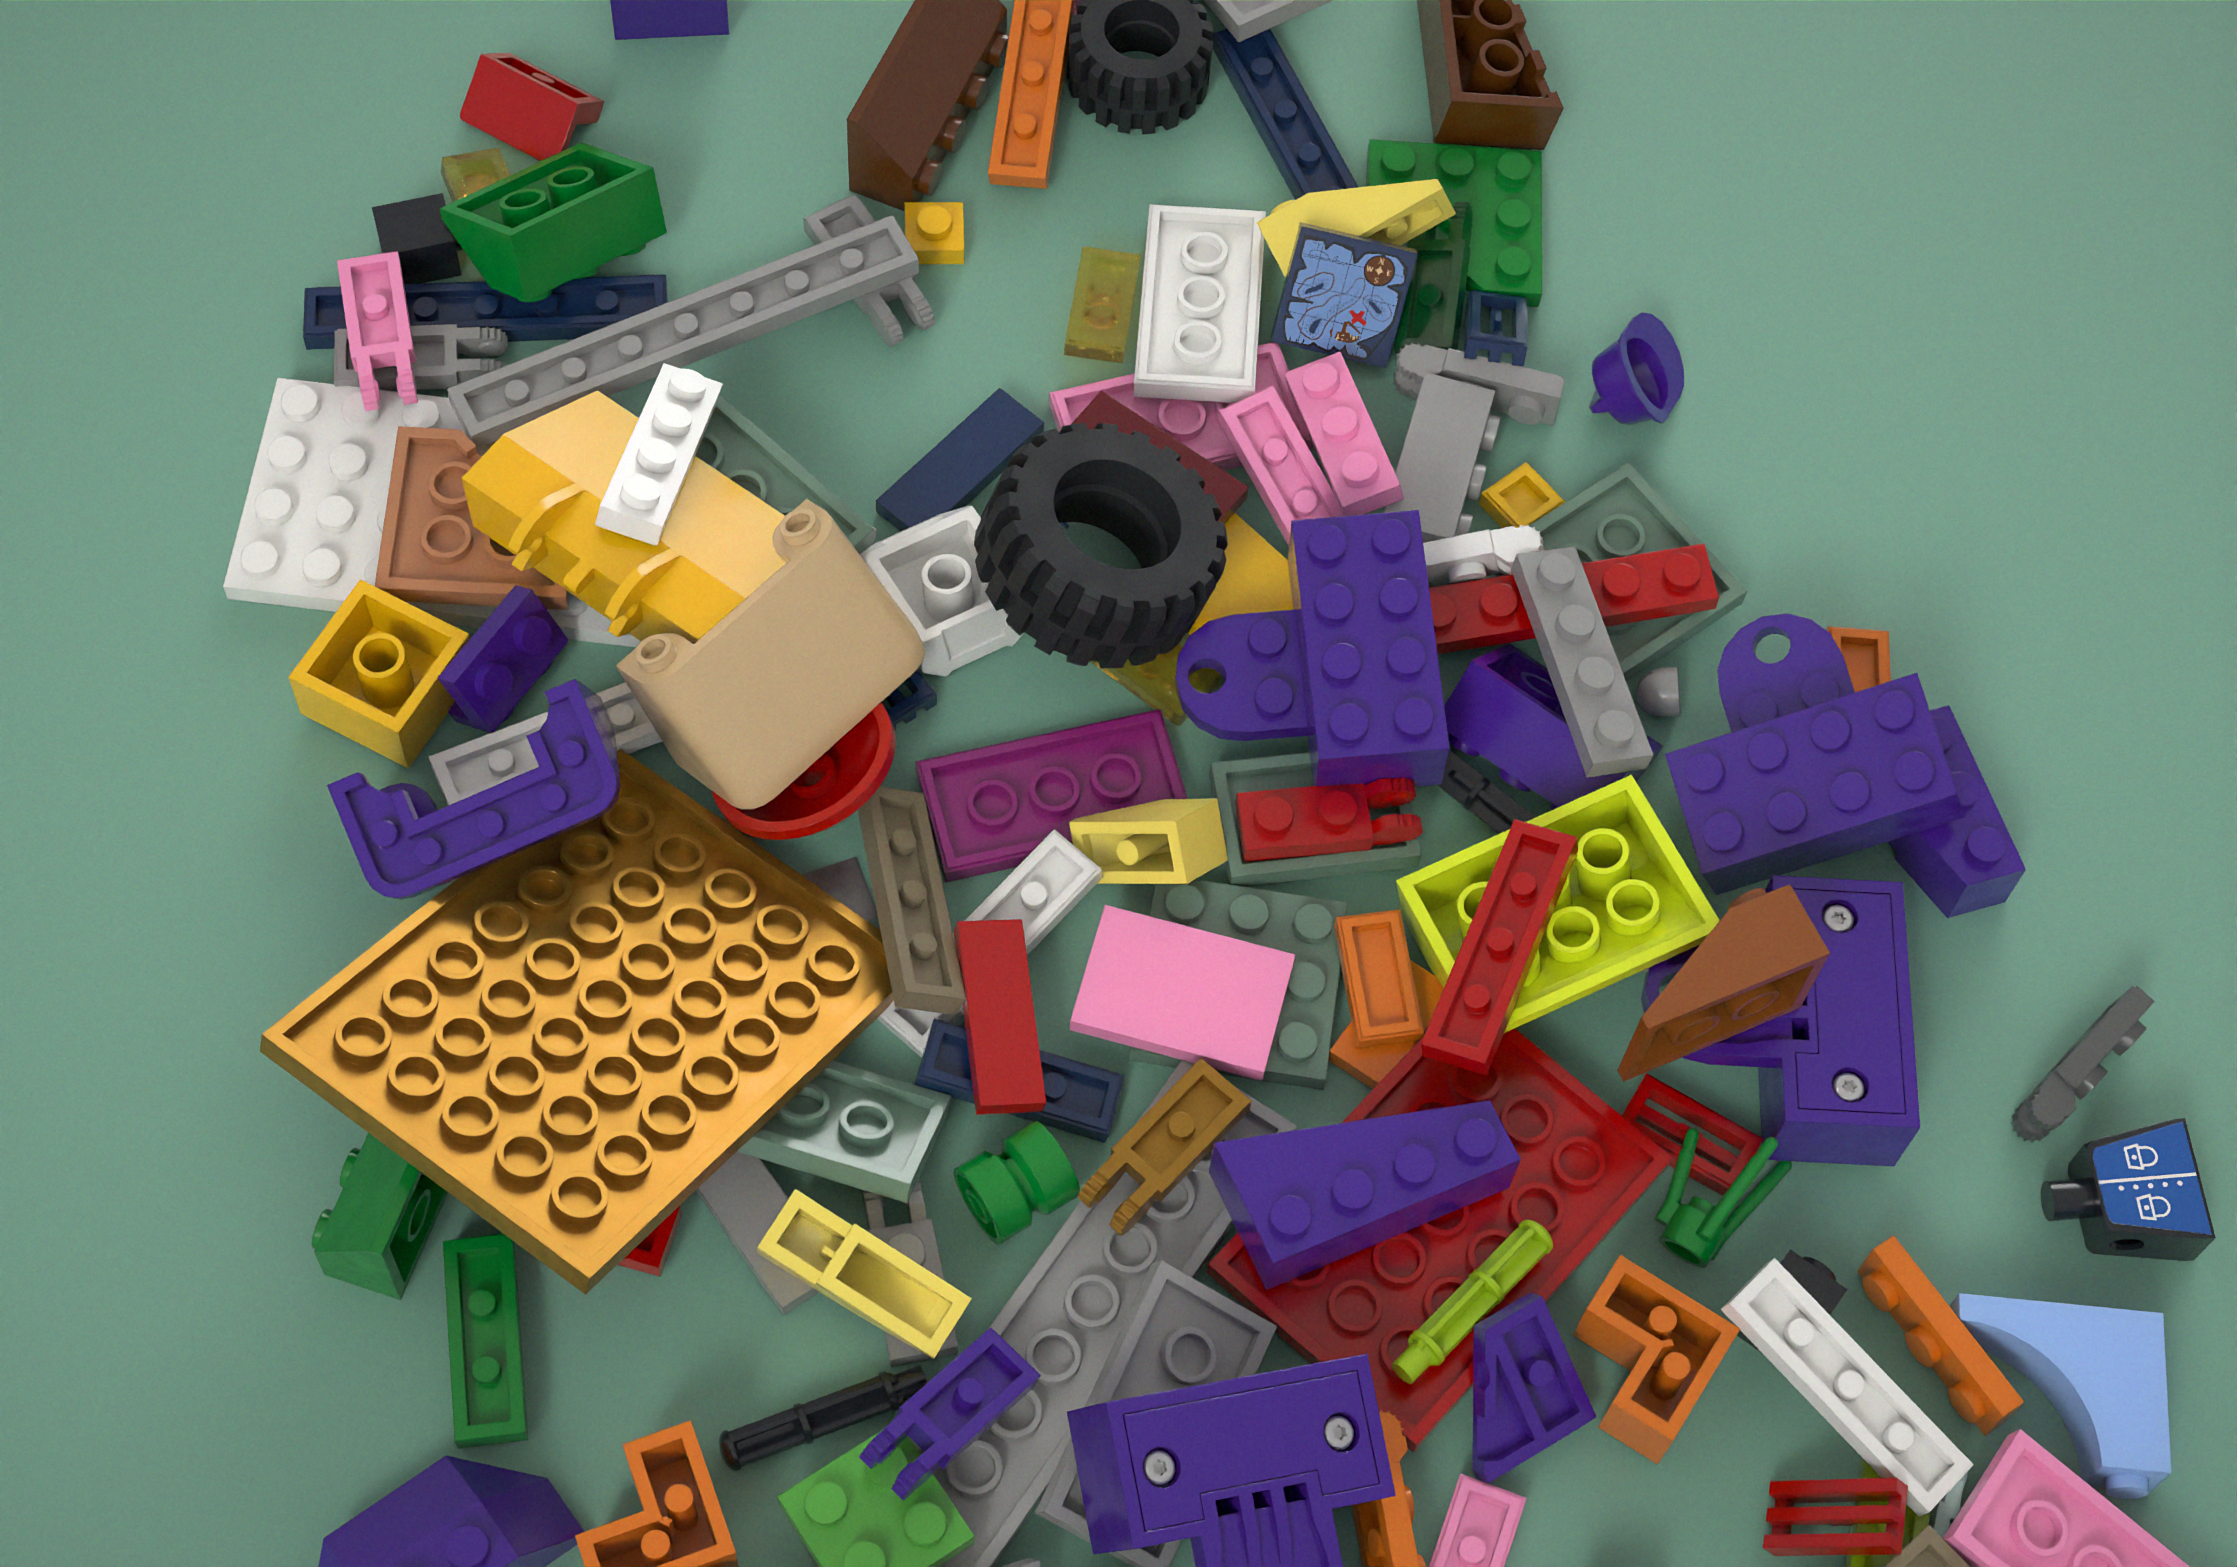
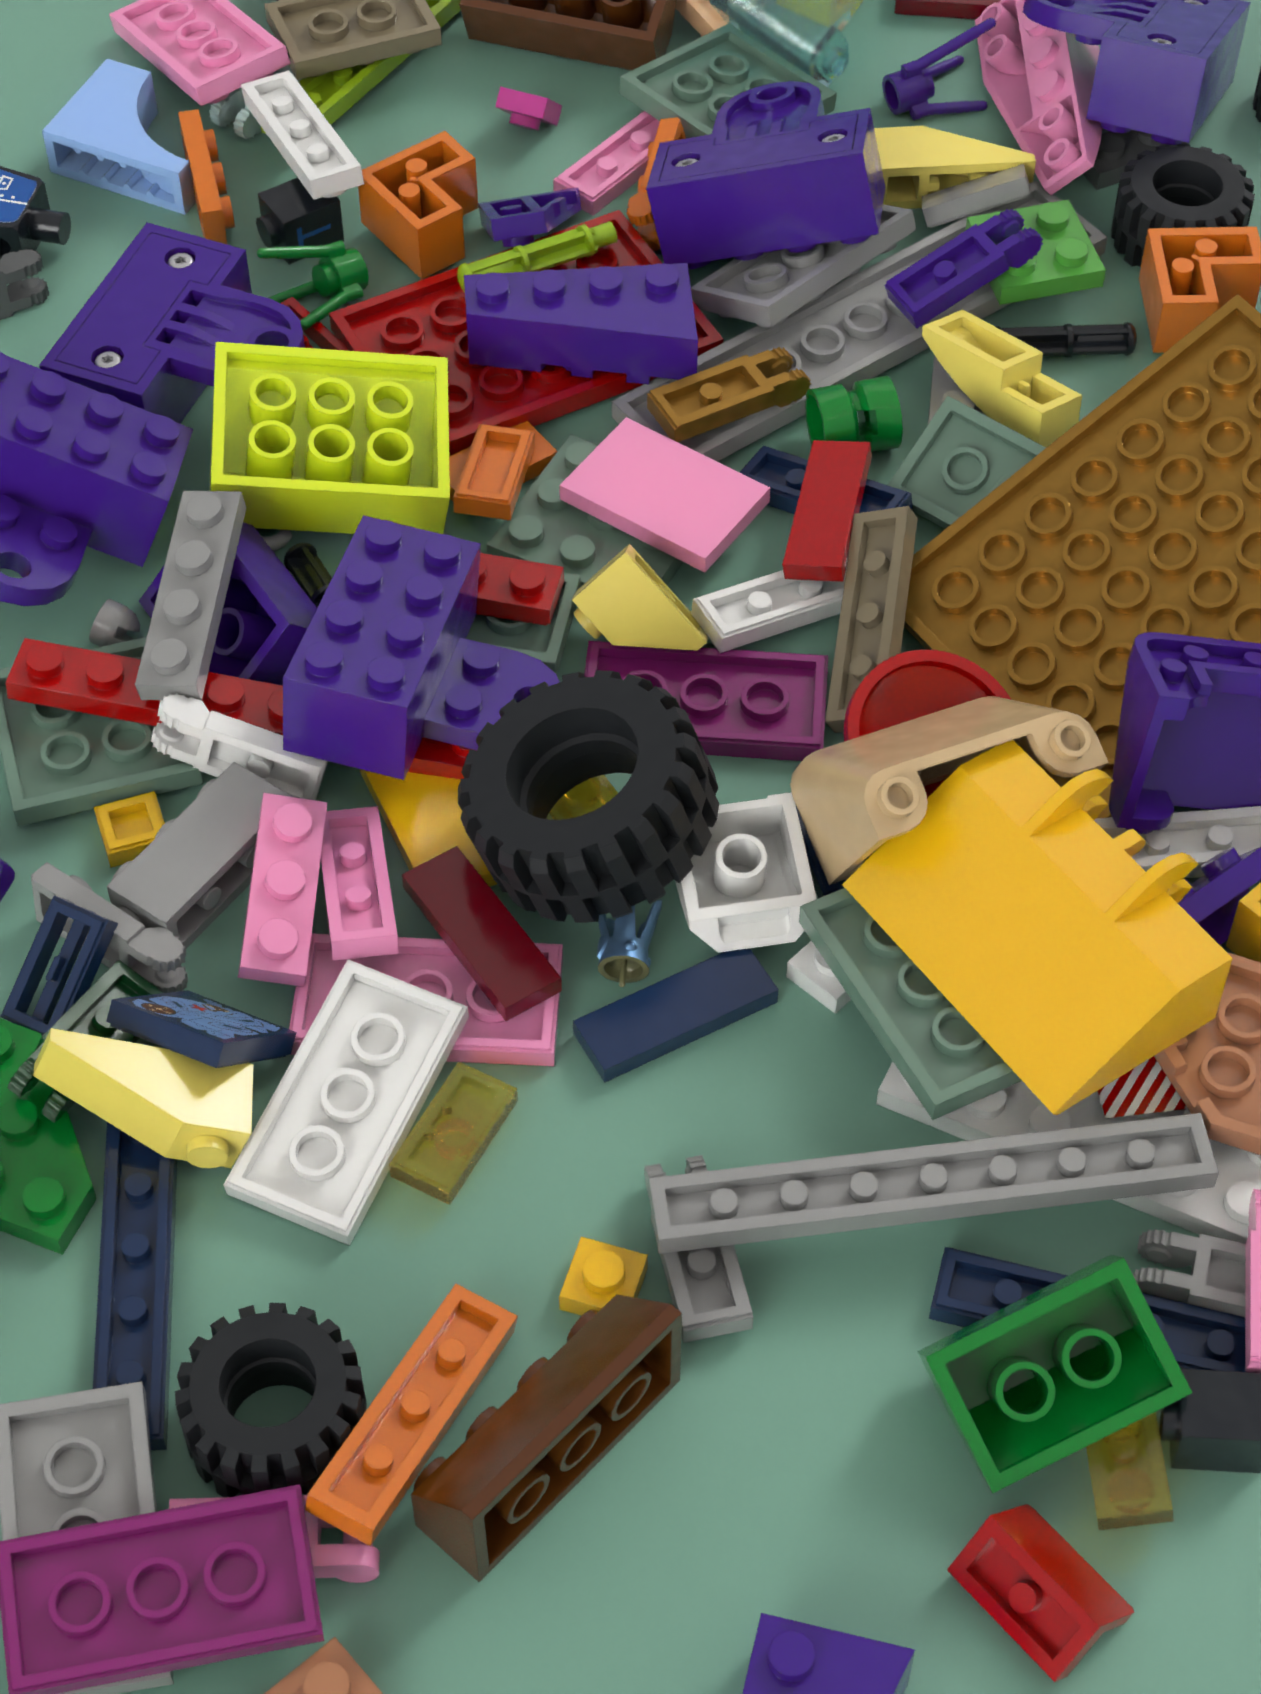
camera: 155 degrees left, 10 degrees down
(659, 454) = (1011, 960): white plate -> none
(1499, 947) = (399, 389): red plate -> none
(1741, 975) = (256, 277): dark orange slope -> none
(1785, 1515) = (354, 96): red tile -> none

